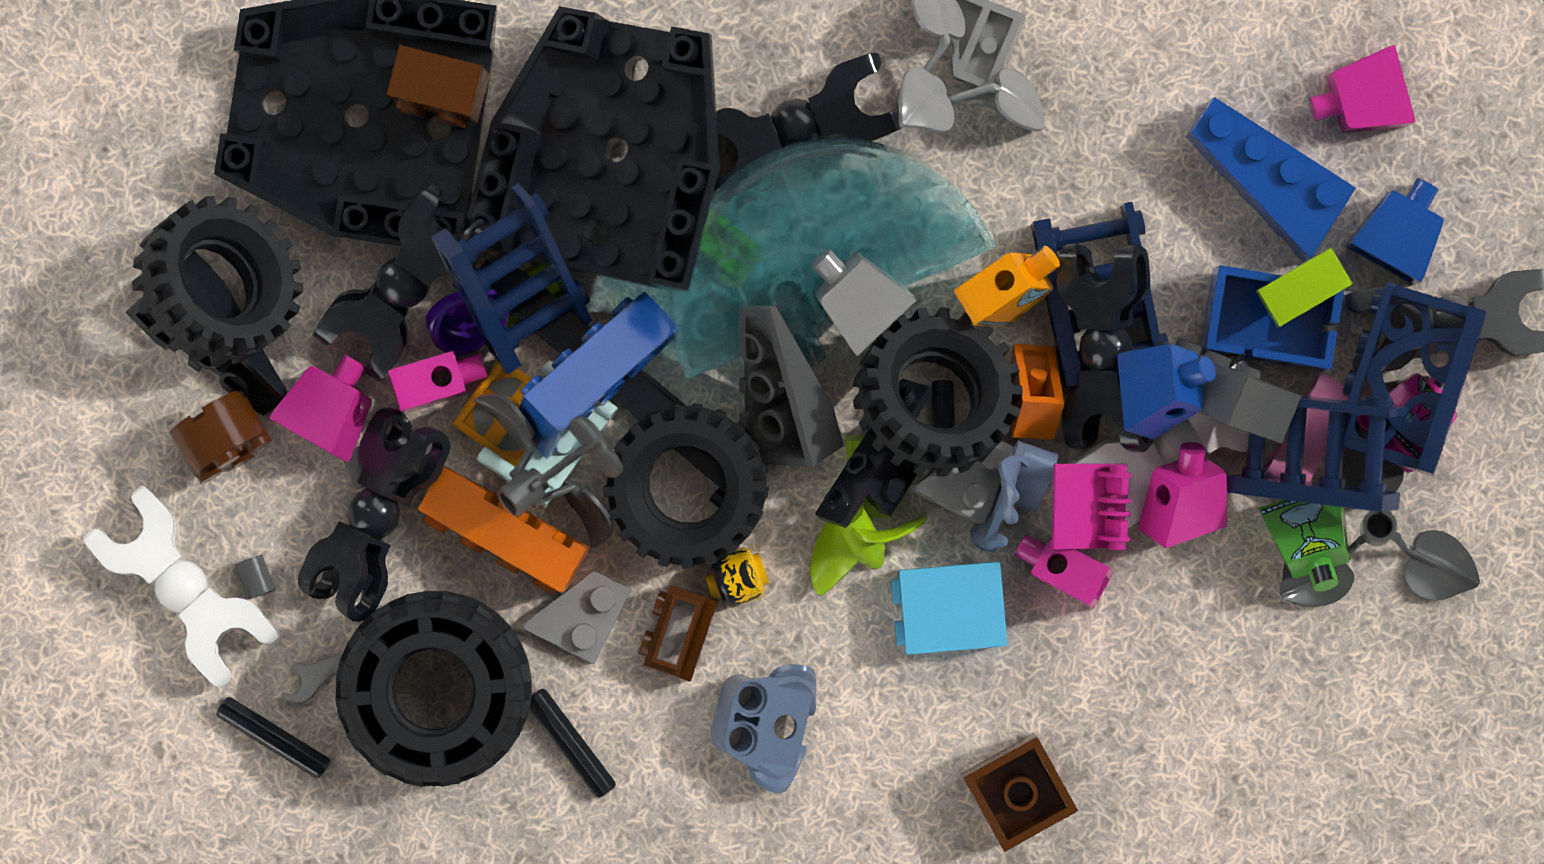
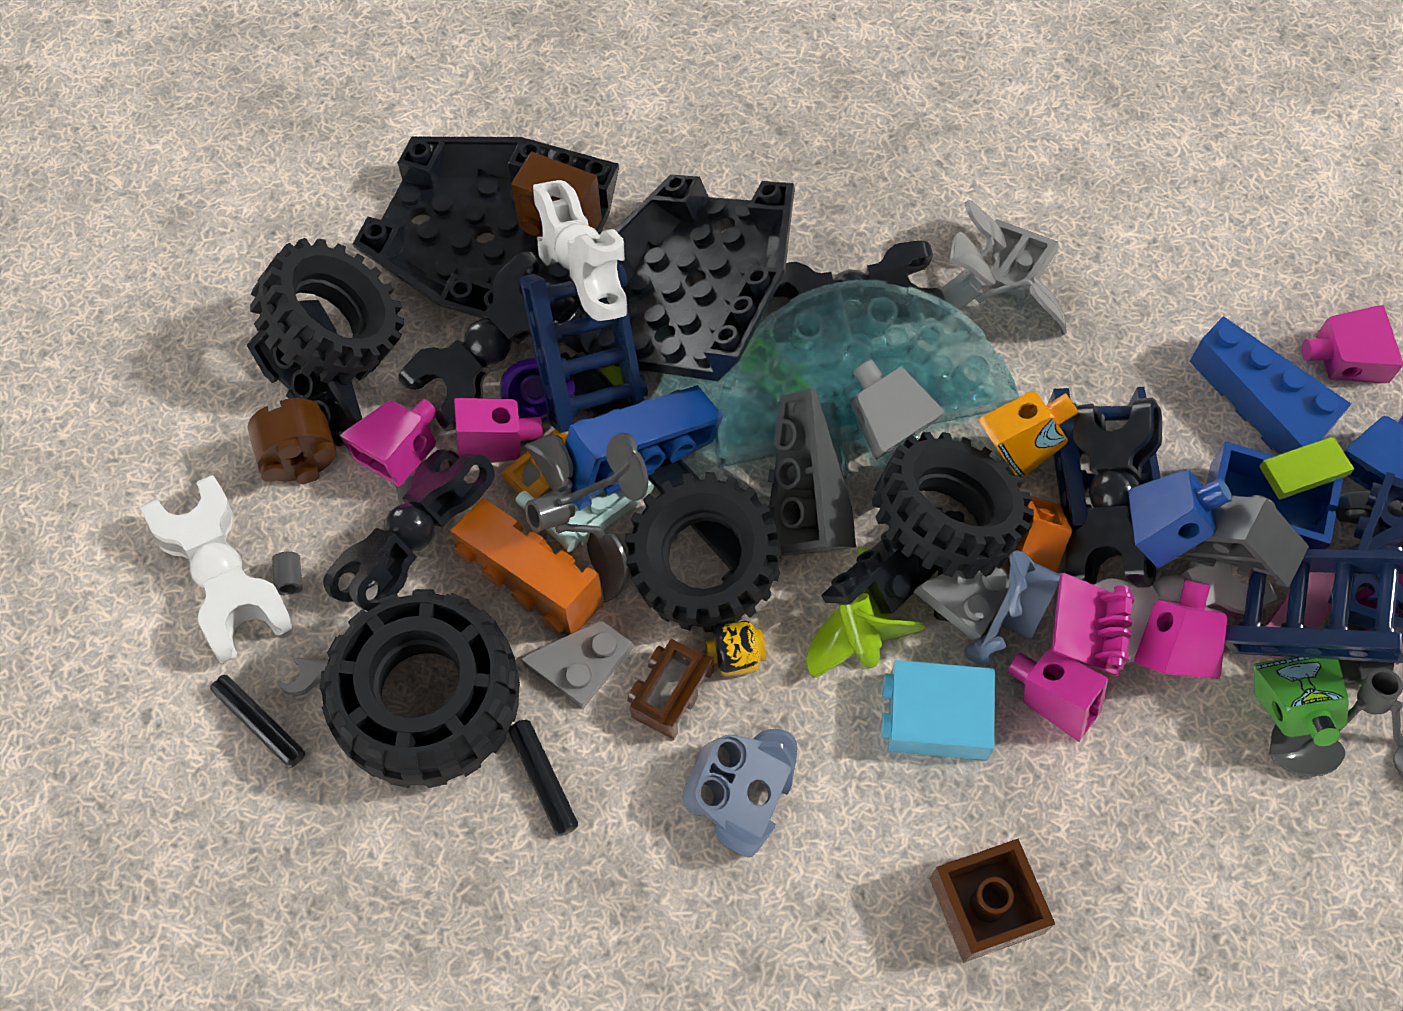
camera: 10 degrees right, 25 degrees down
(488, 187) = (581, 250): none -> white piece

